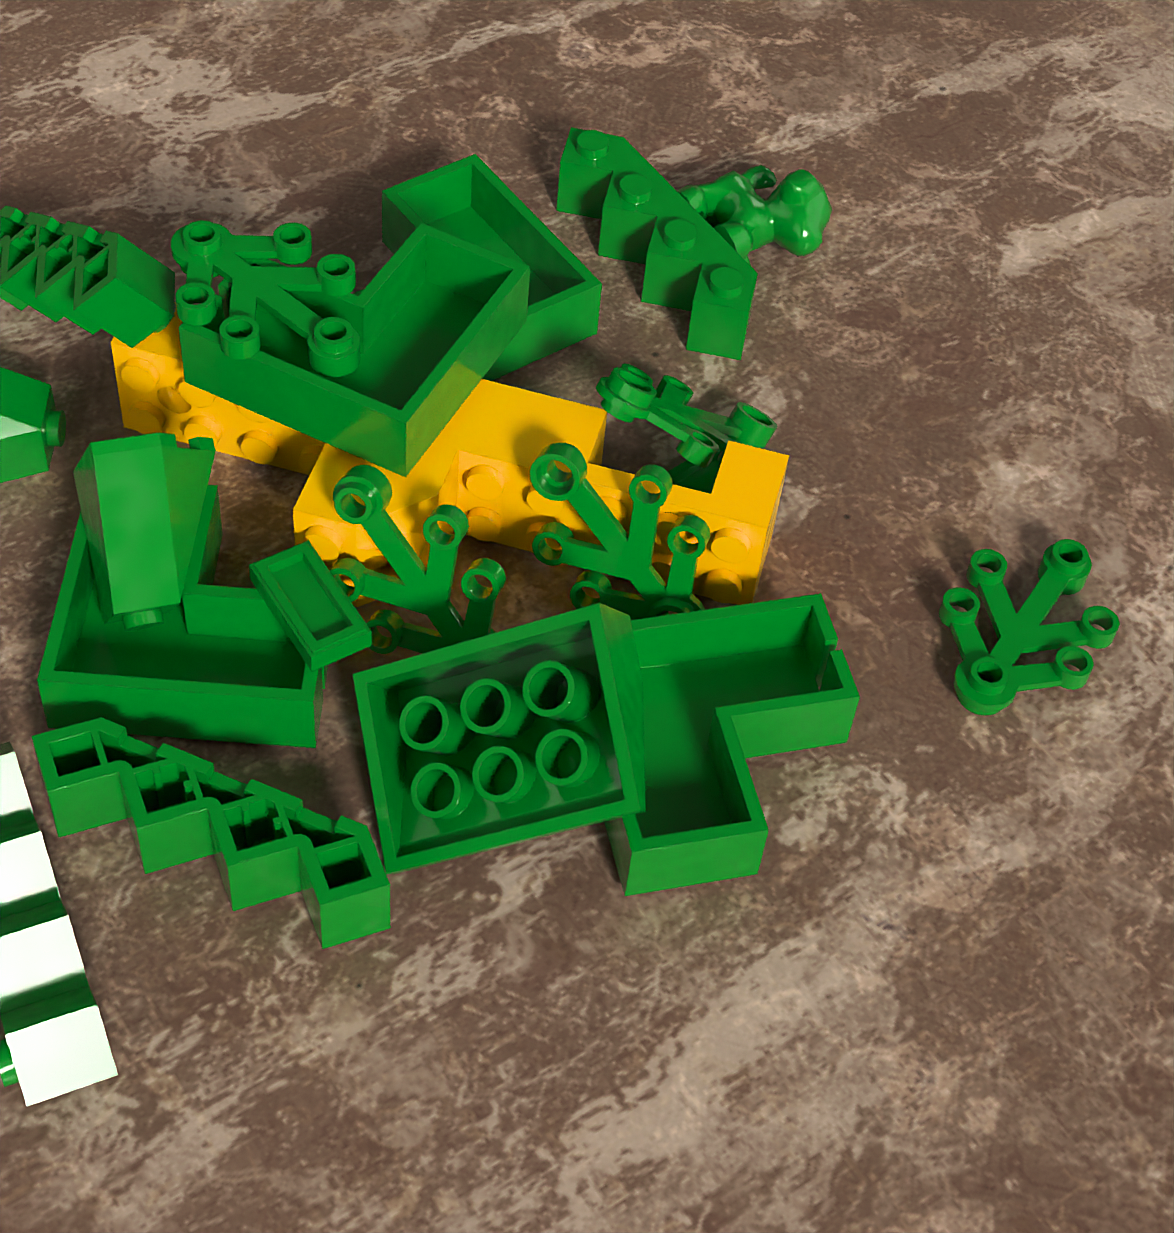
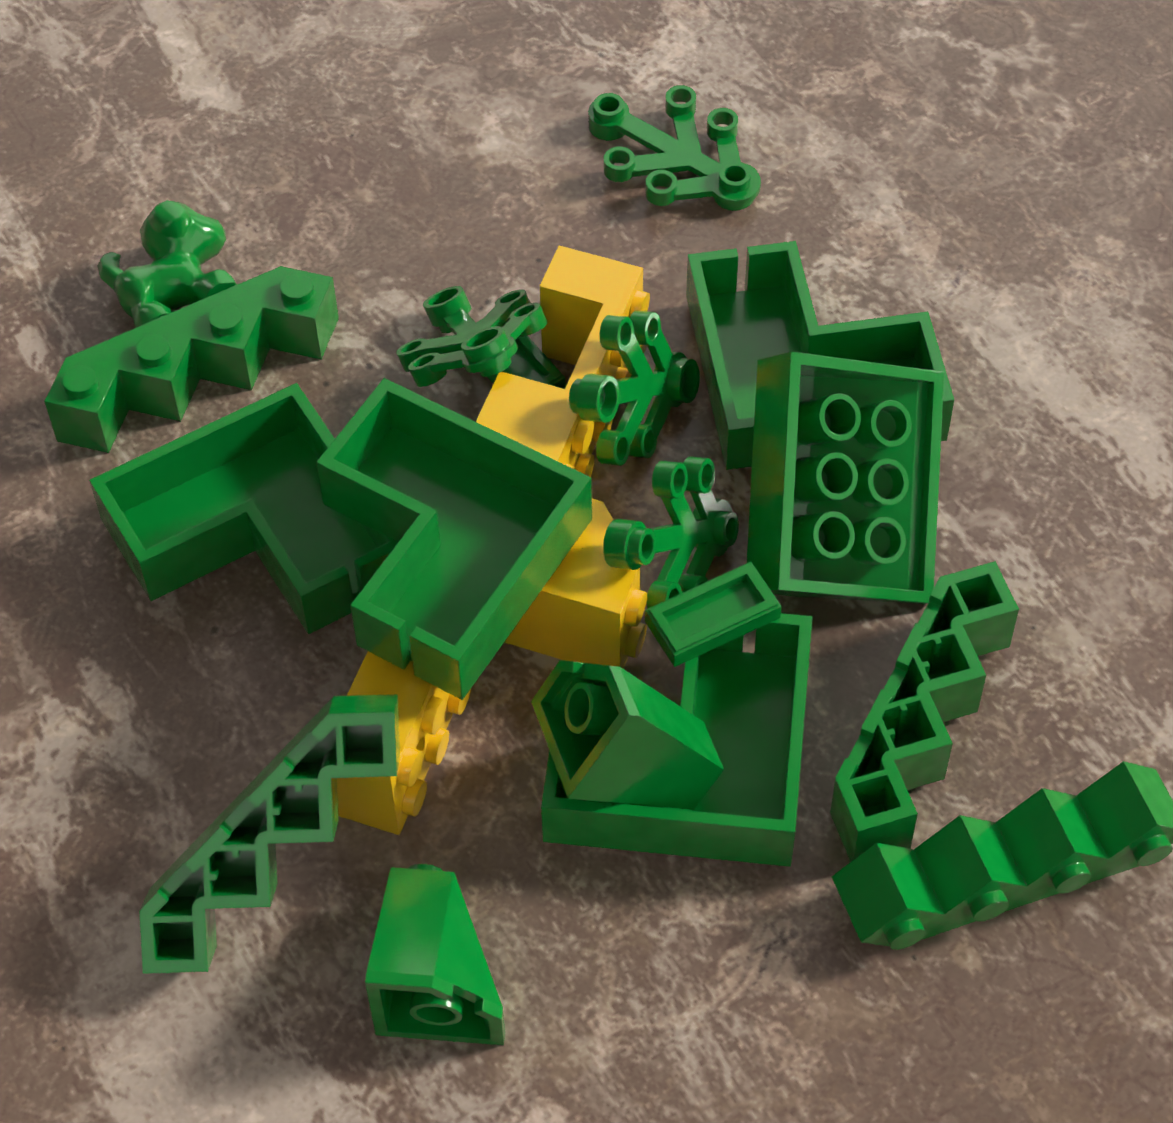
camera: 80 degrees left, 5 degrees up
(210, 250) = (412, 594): green plant -> none

